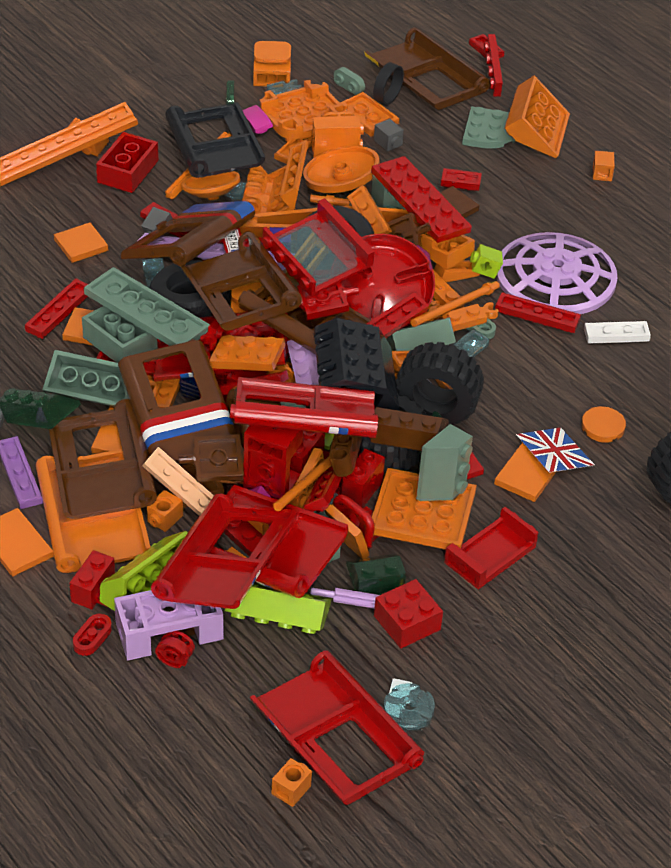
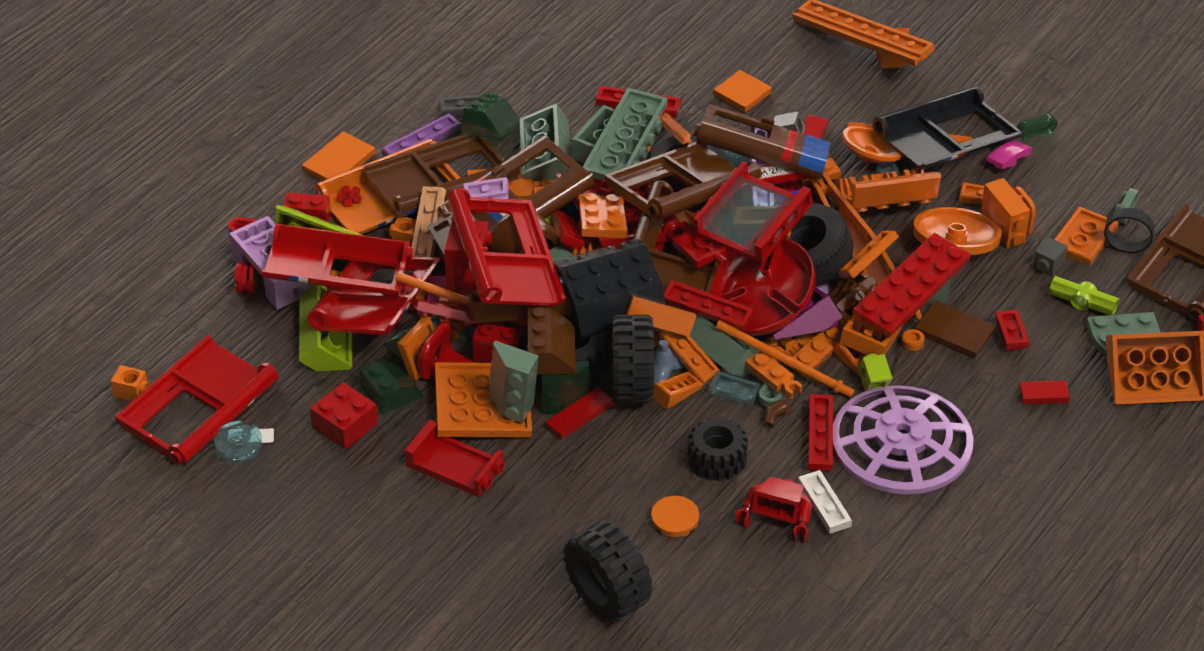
camera: 75 degrees right, 0 degrees up
(84, 542) = (349, 196): none -> red plant
(127, 162) = (870, 83): red brick -> none
(156, 276) = (675, 129): none -> orange axle
(182, 420) = (491, 188): none -> lavender plate
(271, 62) = (1111, 141): orange brick -> none
(281, 87) = (1076, 160): clear light blue plate -> none
(294, 110) = (1048, 181): orange plate -> none
(331, 199) = (910, 239): orange bar -> none
(347, 597) = (351, 371): lavender axle -> none
(397, 350) = (663, 316): none -> orange tile
(439, 132) = (1083, 296): none -> lime piece
(502, 331) = (774, 409): none -> reddish brown arm
(524, 475) = (580, 470): orange tile -> none
(533, 186) = (1044, 392): none -> red tile
(542, 373) = (719, 462): none -> black tyre
(555, 449) = (613, 481): sticker -> none
(603, 166) = (1114, 441): orange brick -> none
(615, 353) = (778, 500): none -> red torso

